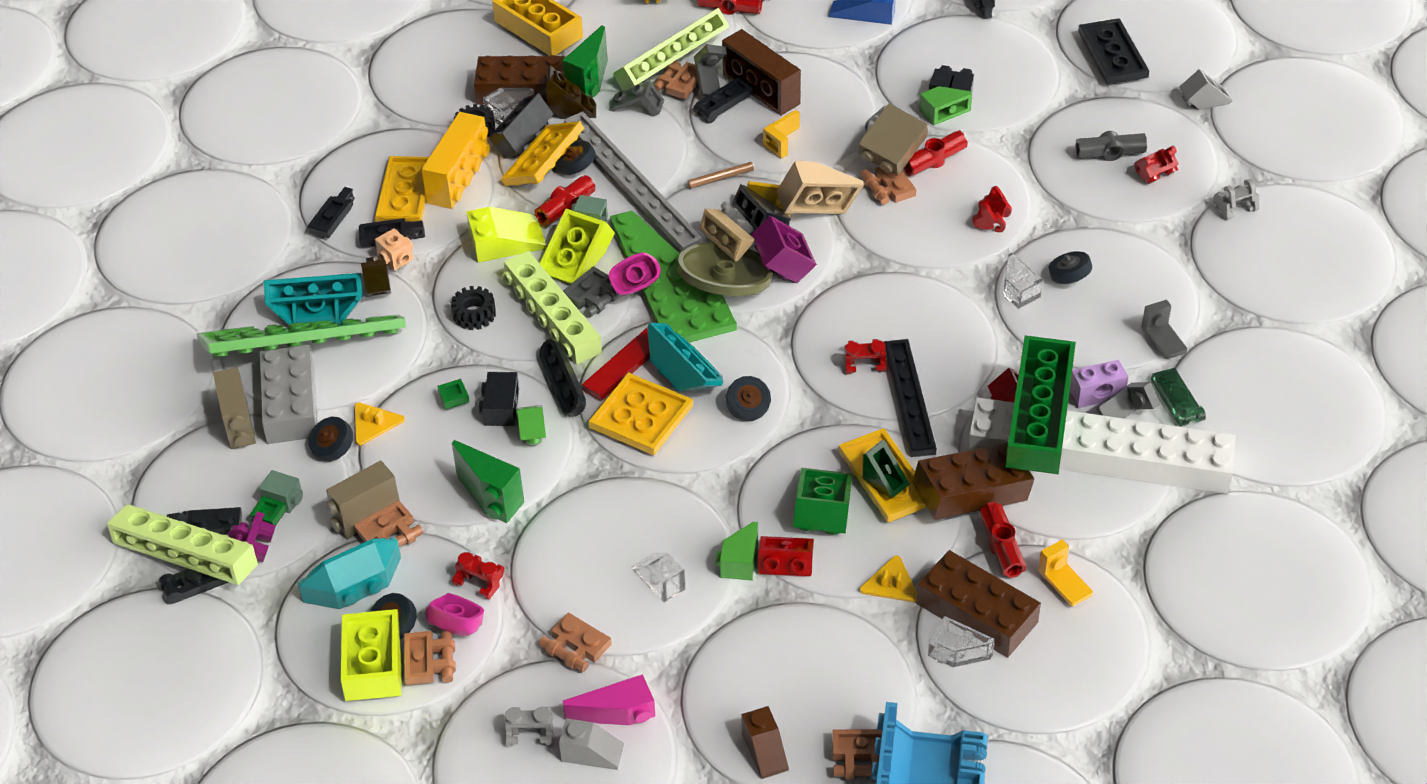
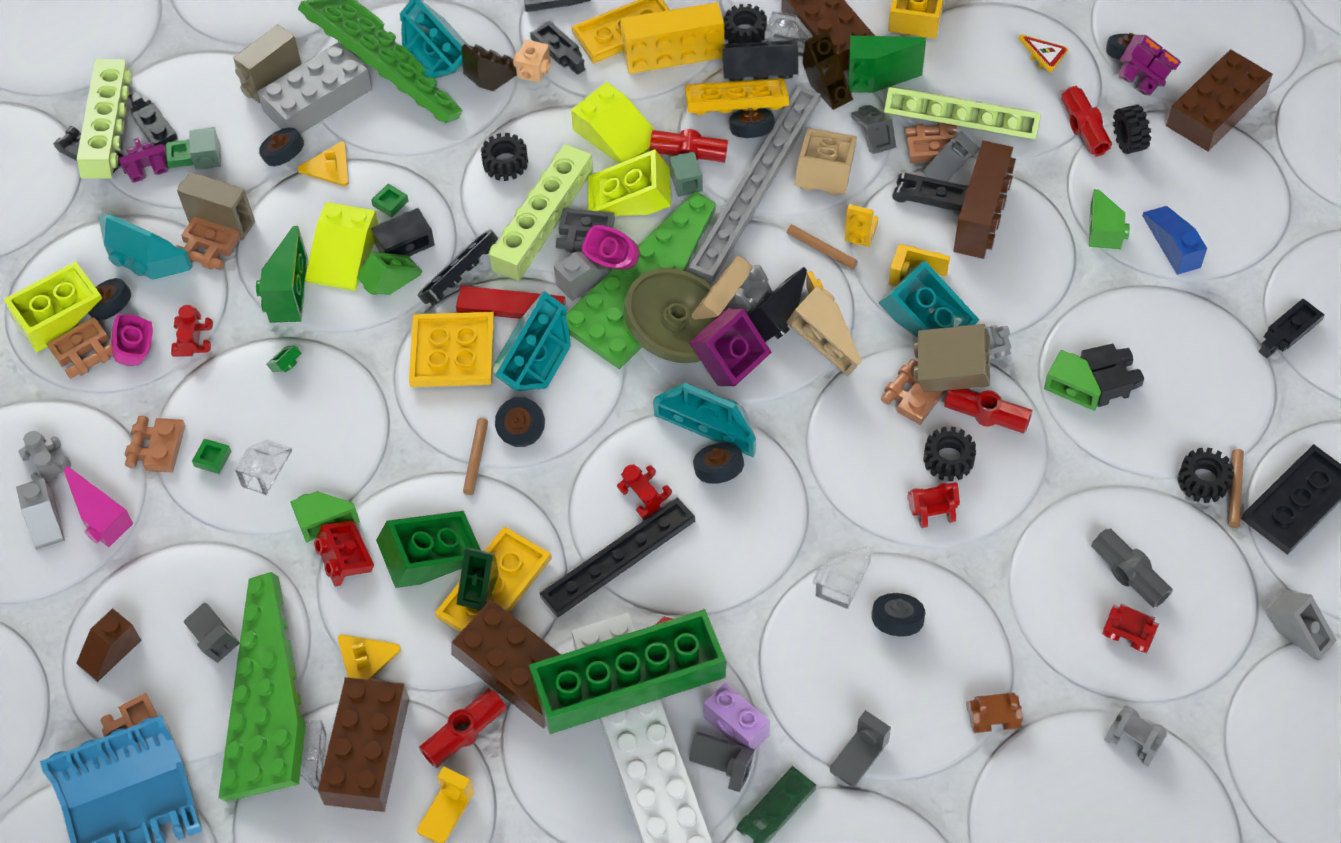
camera: 60 degrees right, 10 degrees up
(476, 428) = (341, 245): none -> neon yellow slope
(562, 520) = (284, 359): none -> green plate
(622, 605) = (211, 456): none -> green plate
(634, 312) = (578, 274): none -> light grey slope
(649, 136) = (825, 161): none -> tan slope
(727, 143) = (860, 225): none -> yellow bracket
(754, 442) = (475, 456): none -> medium nougat bar
(803, 667) = (213, 635): none -> dark grey bracket
(824, 30) = (1106, 223): none -> bright green slope
(824, 142) = (926, 302): none -> teal slope
(832, 289) = (707, 416): none -> teal wedge
(874, 304) = (718, 463): none -> black wheel
(912, 653) = (264, 717): none -> bright green wing
(956, 197) = (952, 440): none -> black tyre
(1064, 82) = (1210, 462): none -> black tyre
(1082, 75) = (1236, 489): none -> medium nougat bar
(1177, 255) = (995, 710): none -> dark orange piece

